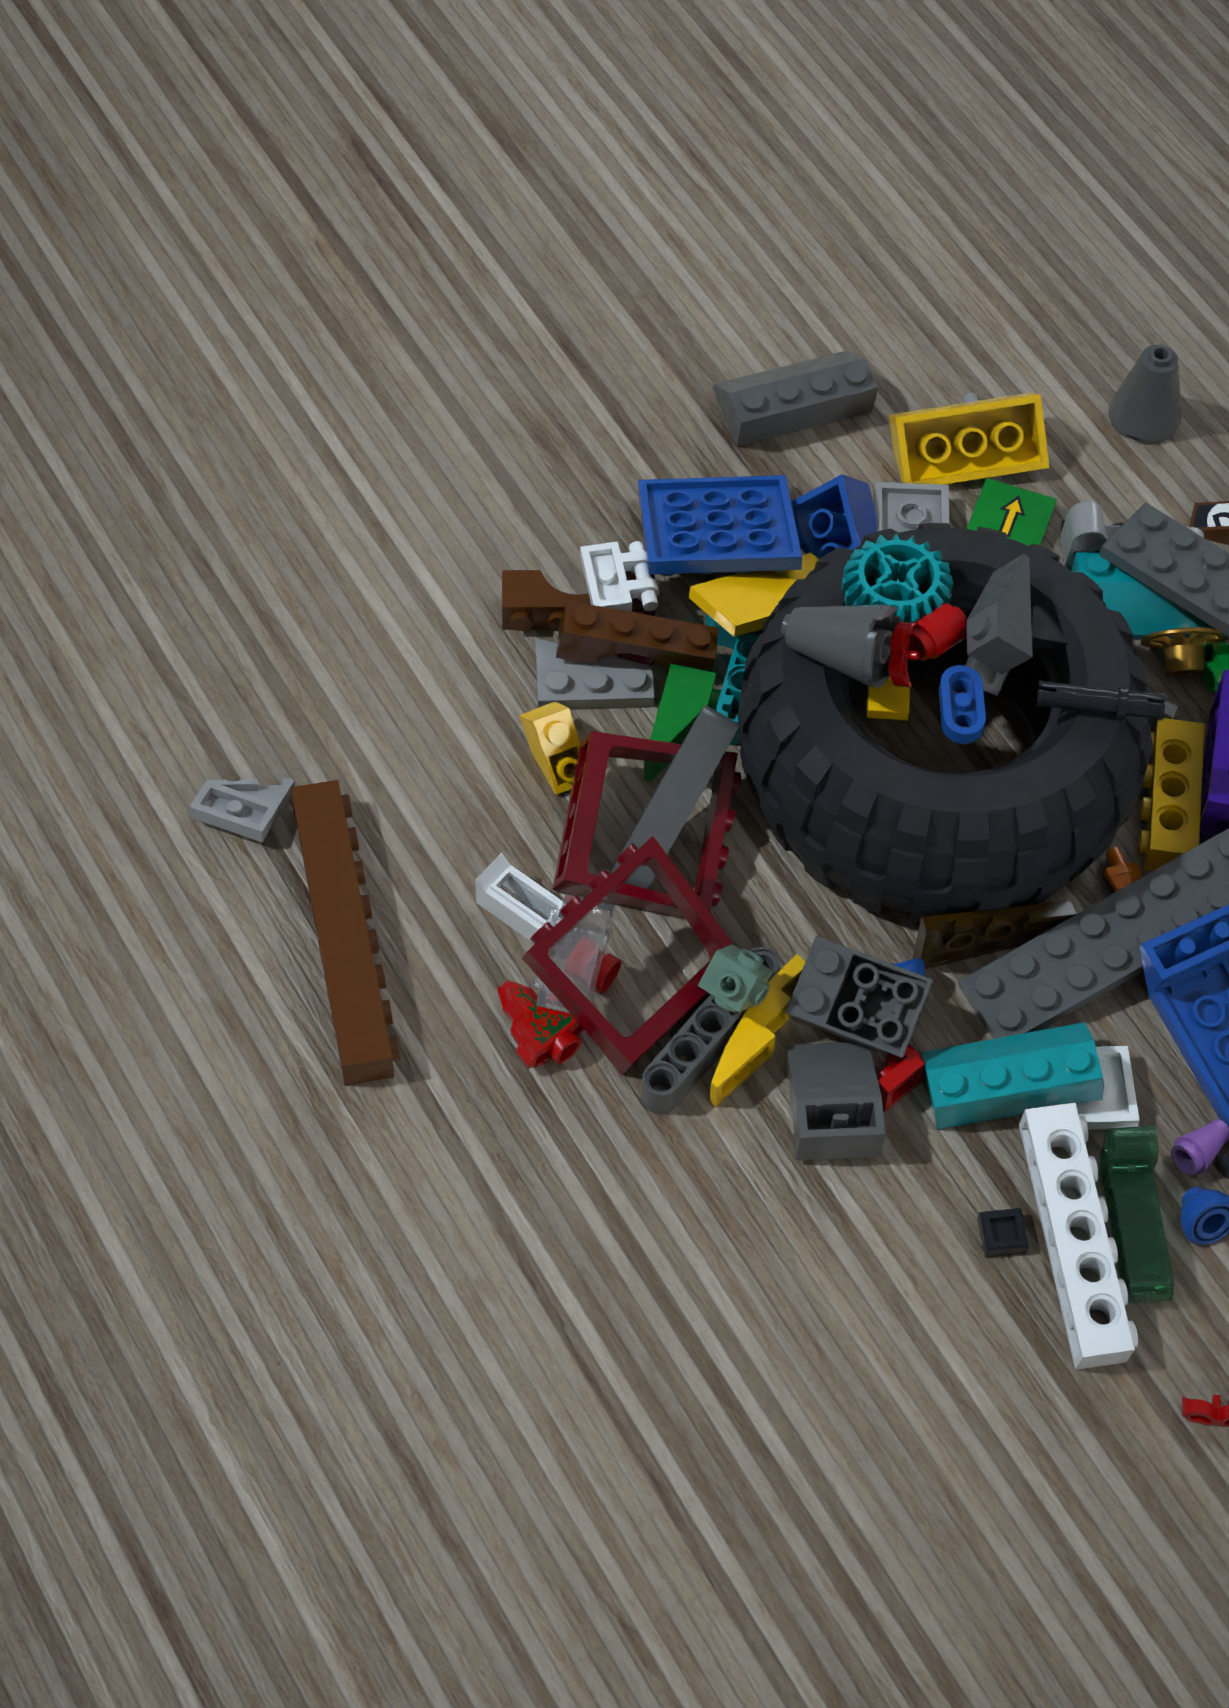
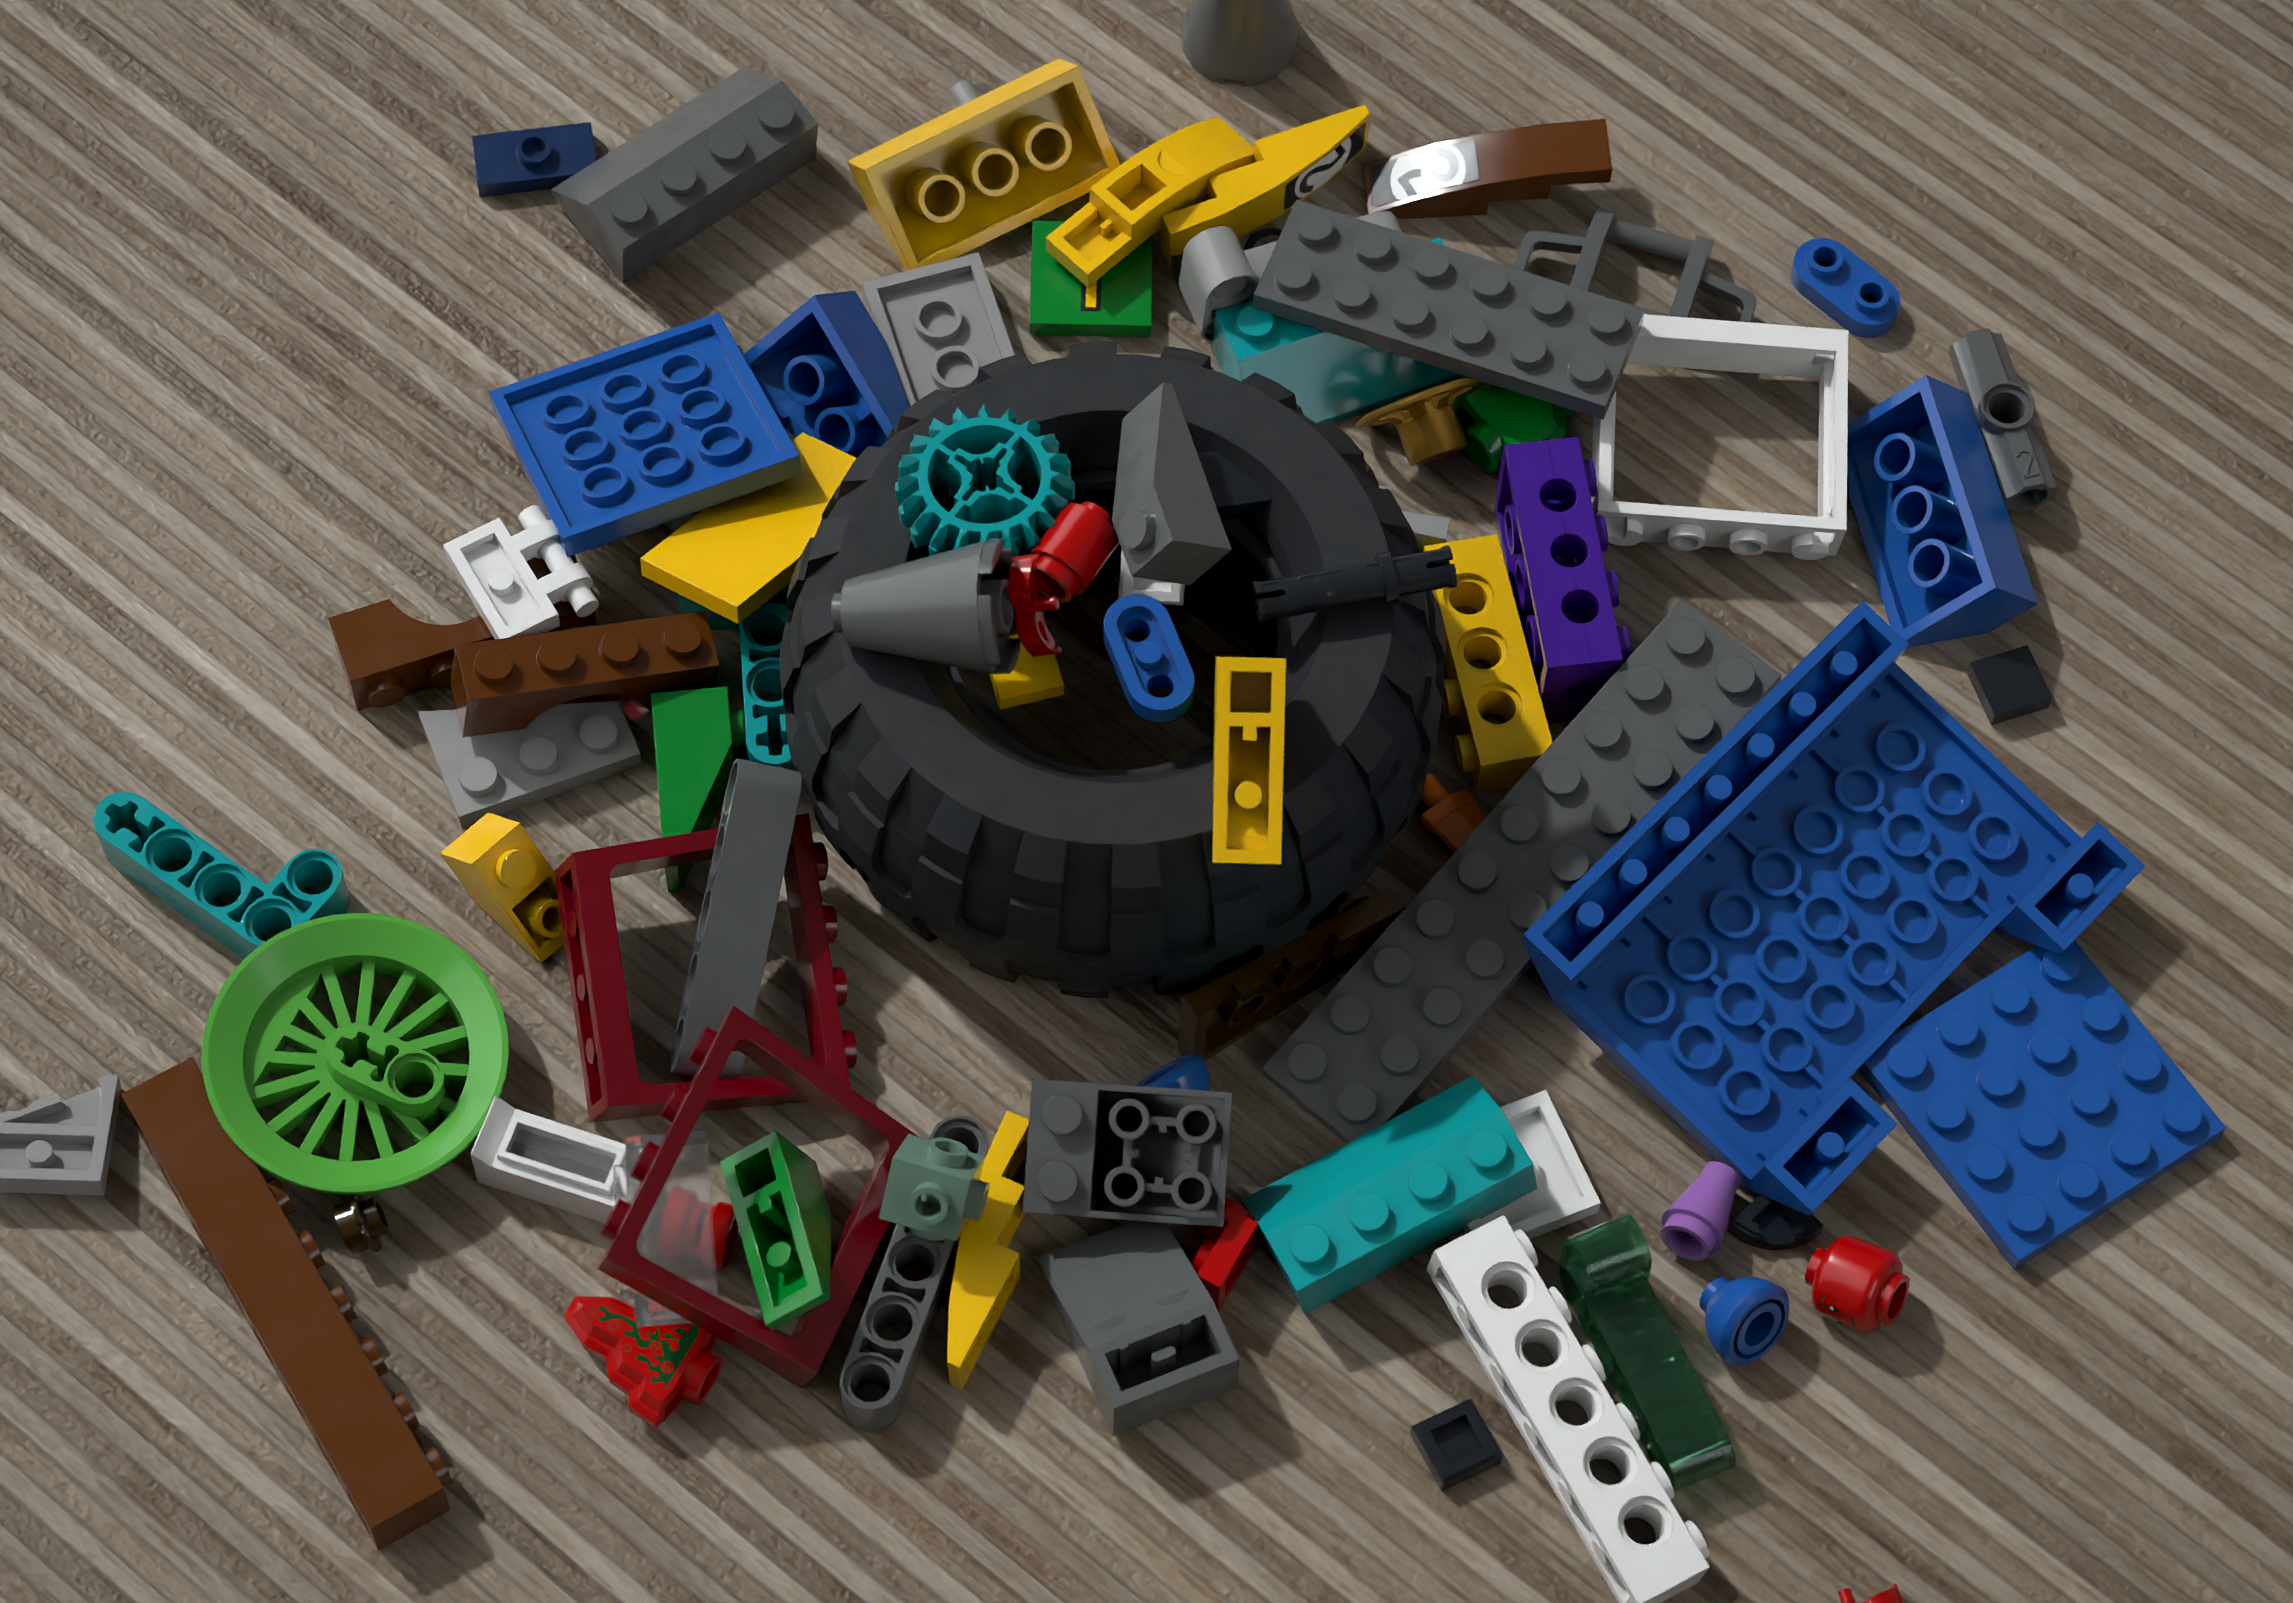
camera: 20 degrees left, 5 degrees up
(385, 689) = (214, 875): none -> teal beam
(400, 901) = (361, 1223): none -> dark brown plate
(430, 812) = (275, 990): none -> bright green piece
(641, 973) = (781, 1225): none -> green slope
(708, 365) = (531, 158): none -> dark blue plate
(1002, 775) = (1248, 759): none -> yellow slope
(1060, 477) = (1133, 197): none -> yellow slope
(1156, 486) = (1282, 170): none -> yellow slope

